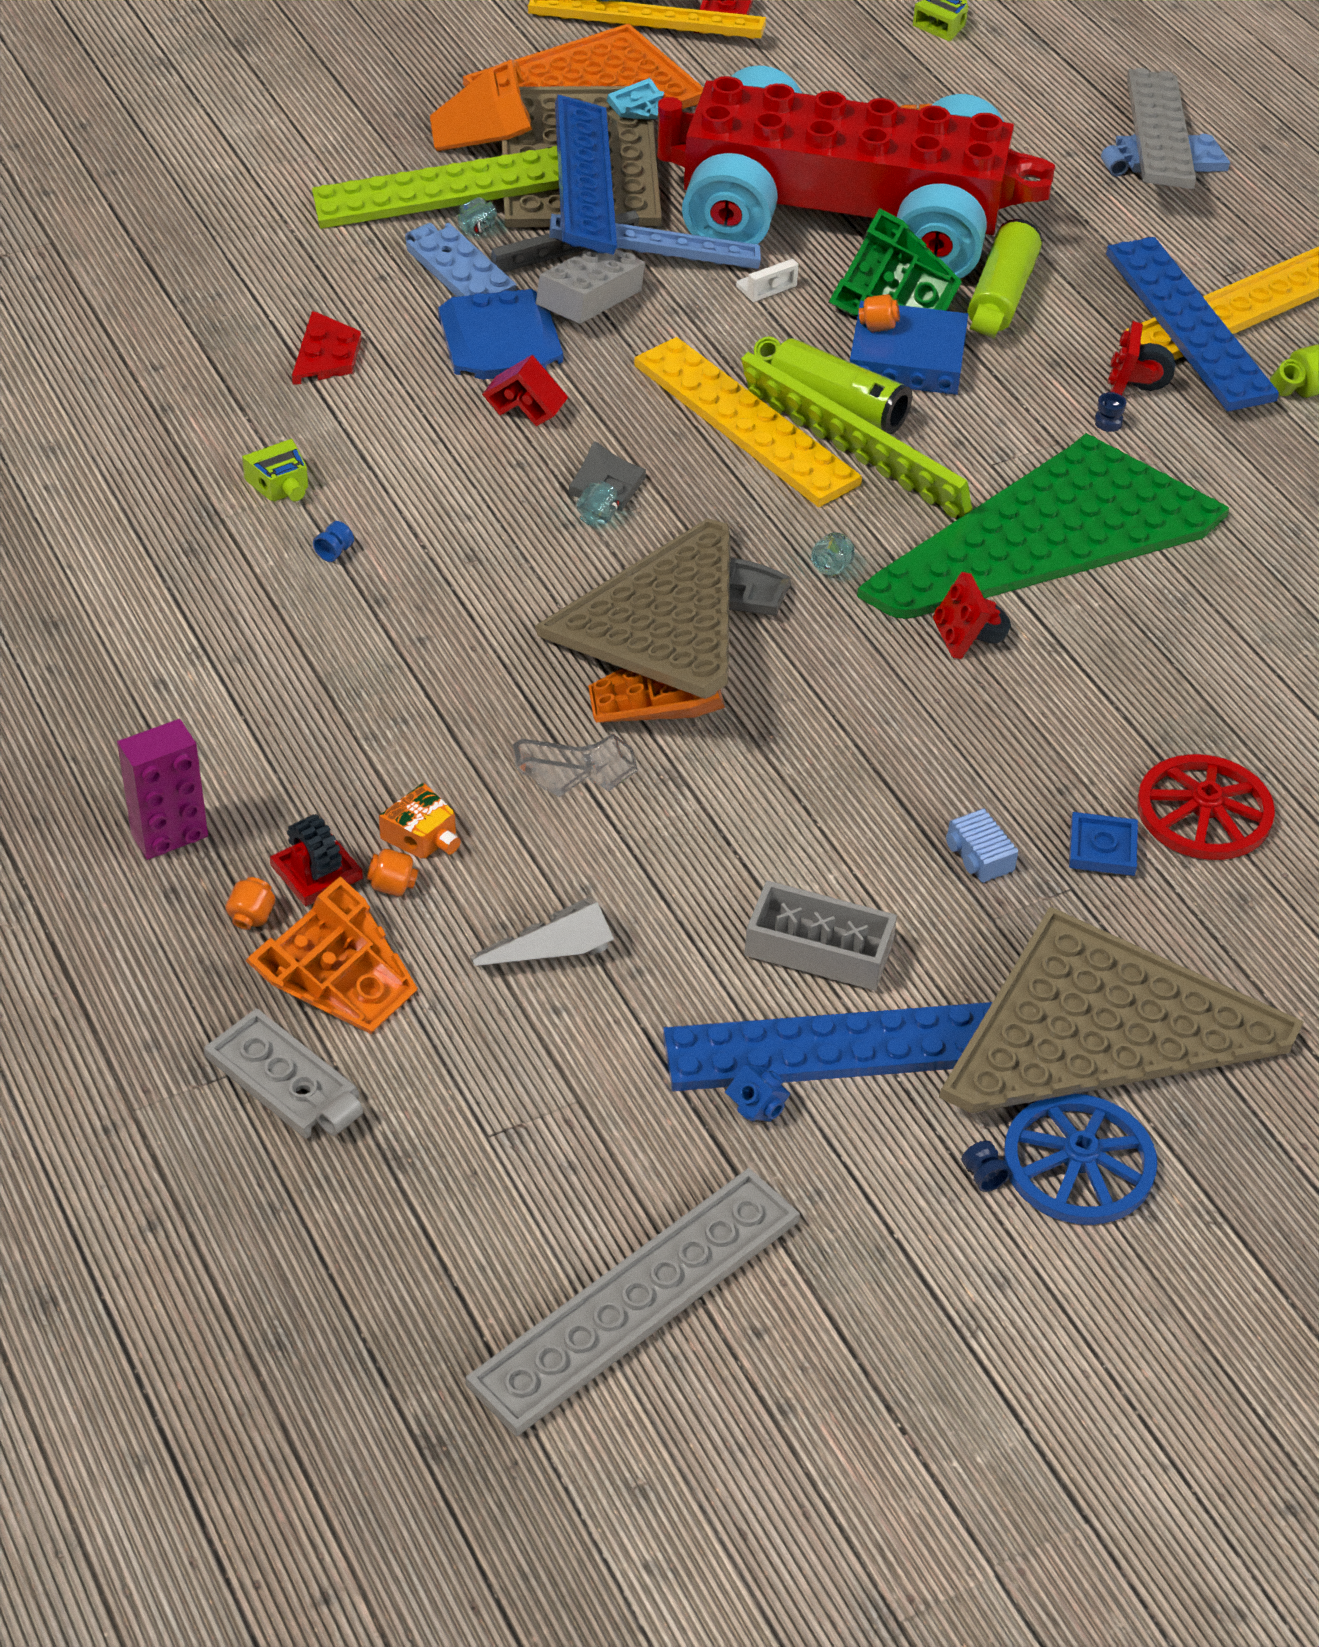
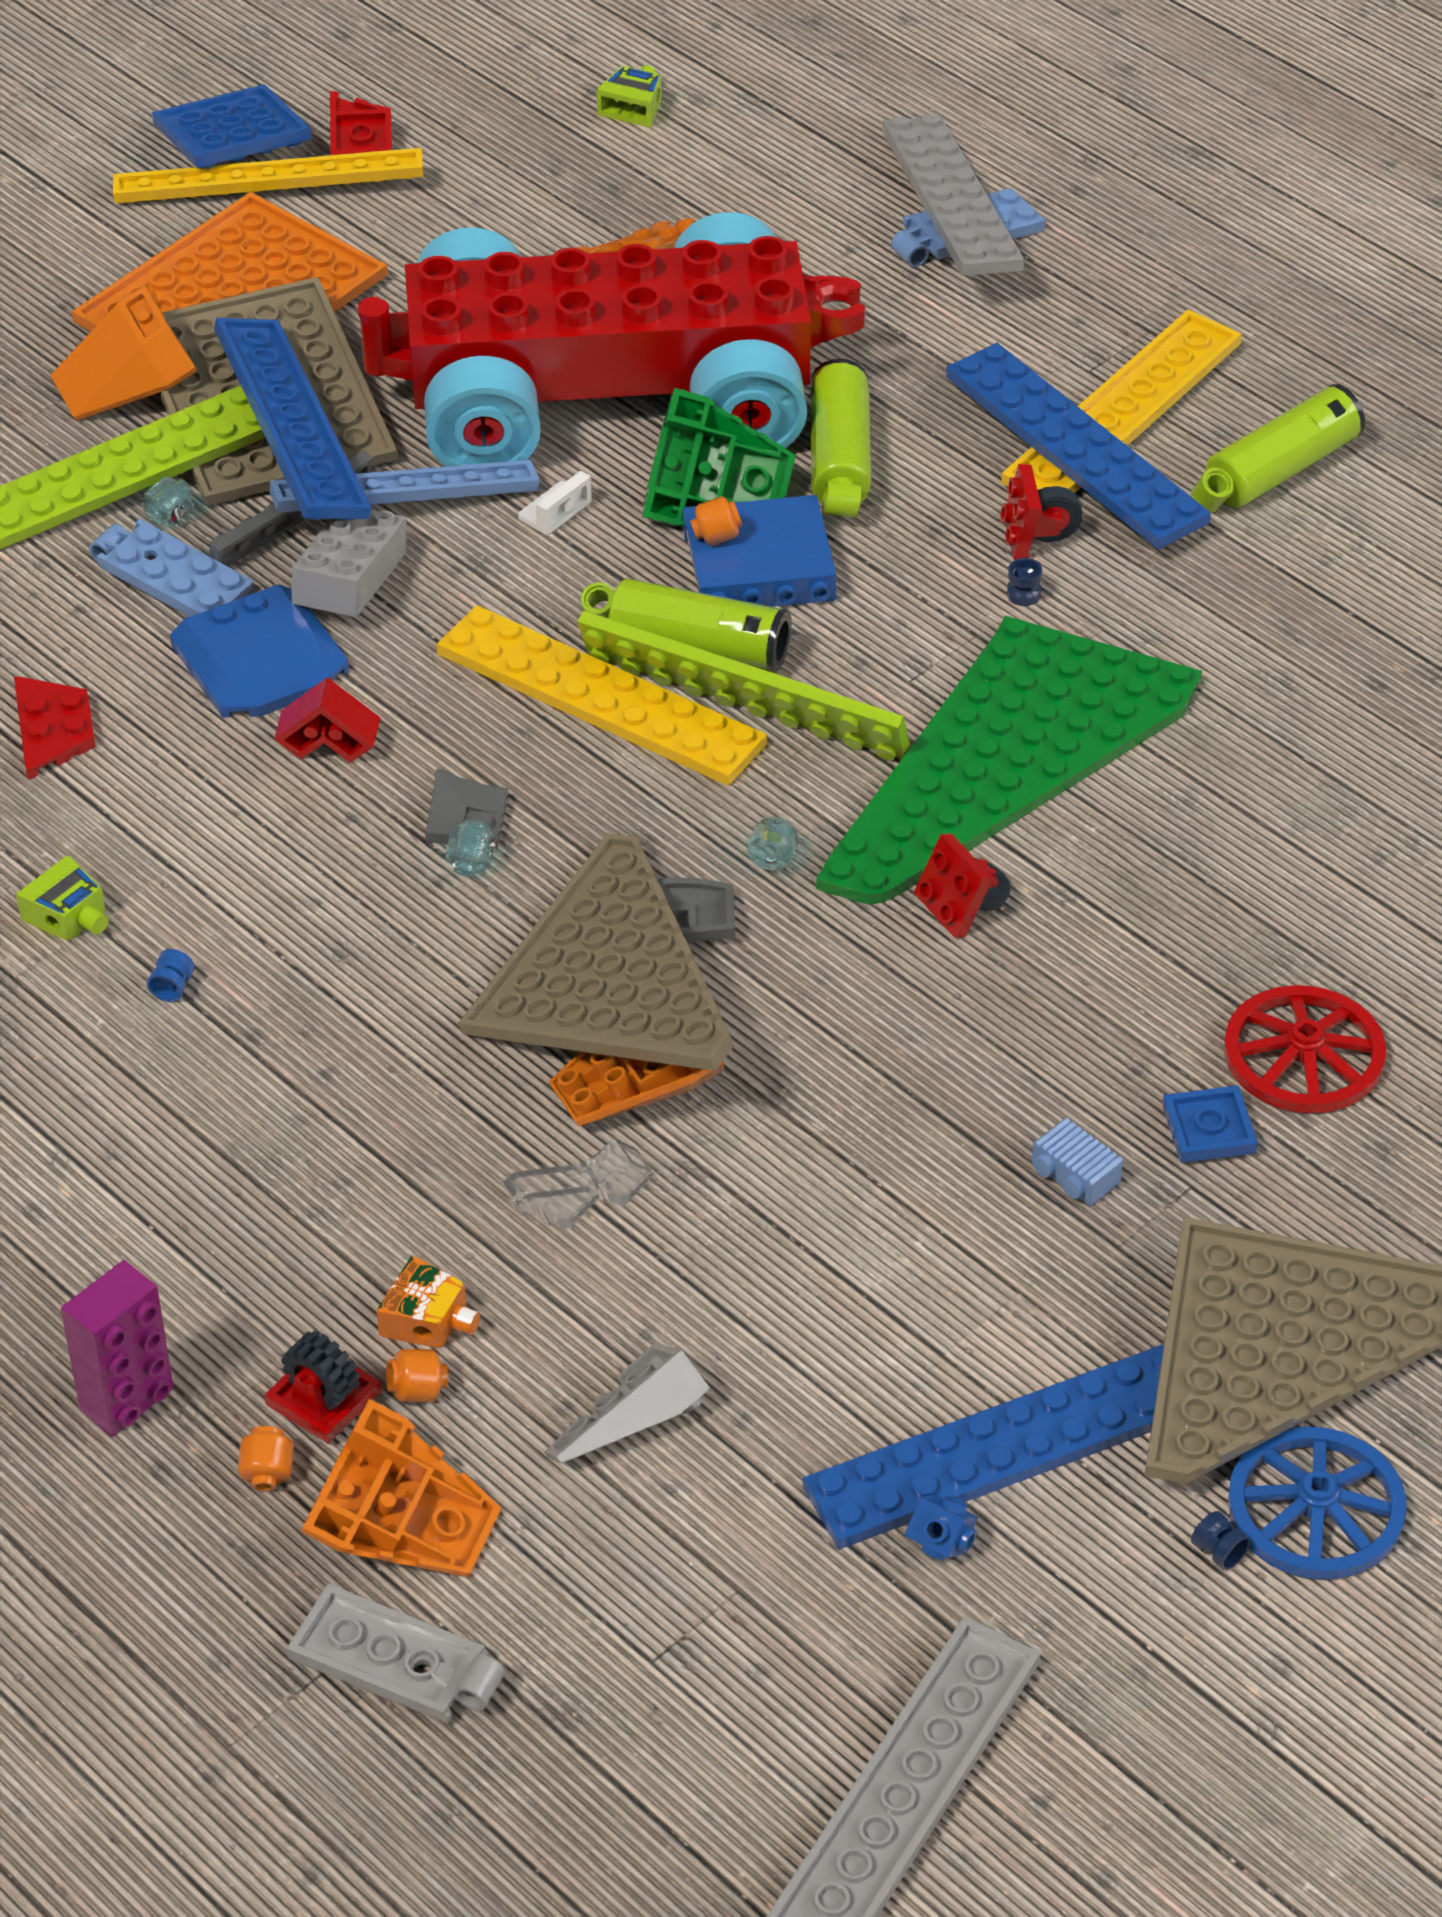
camera: 15 degrees left, 0 degrees up
(636, 100) = (312, 301): medium azure slope -> none
(820, 935) = (940, 1319): light grey brick -> none

